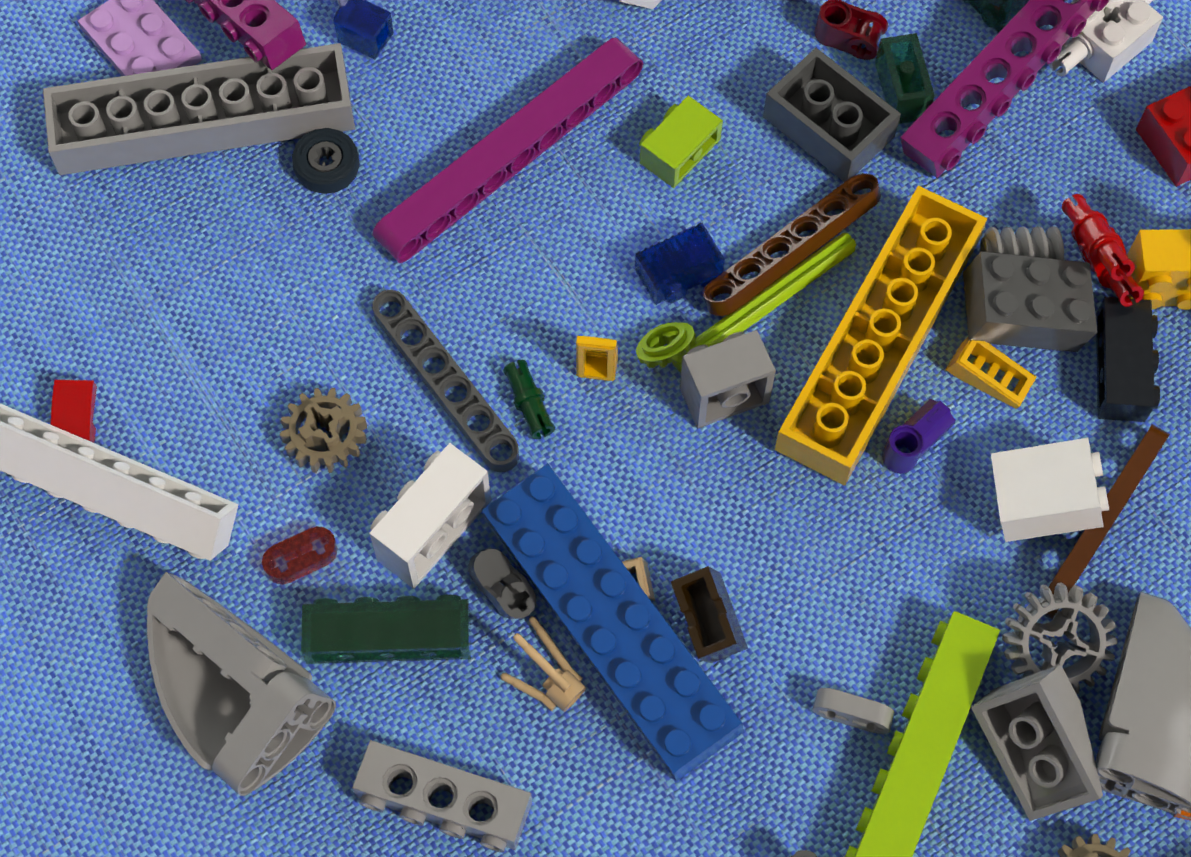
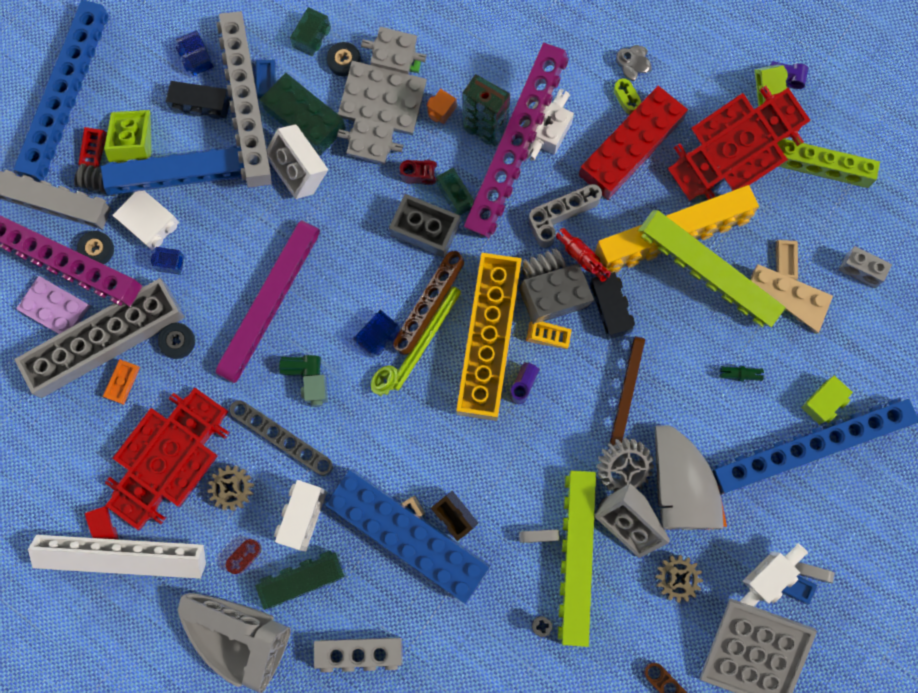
camera: 15 degrees left, 10 degrees up
(205, 193) = (121, 381): none -> orange plate
(230, 340) = (165, 458): none -> red piece
(513, 599) = (339, 529): dark grey piece -> none
(529, 399) = (327, 433): dark green pin -> none
(534, 276) = (300, 366): none -> dark green piece
(535, 319) = (315, 390): none -> sand green brick
(561, 686) = (395, 576): tan plant -> none
(596, 358) = (353, 401): yellow slope -> none
(680, 141) = (353, 266): lime brick -> none
(726, 378) = (421, 389): light grey brick -> none
(1049, 489) = (596, 391): white brick -> none
(1137, 166) = (567, 211): none -> light grey beam

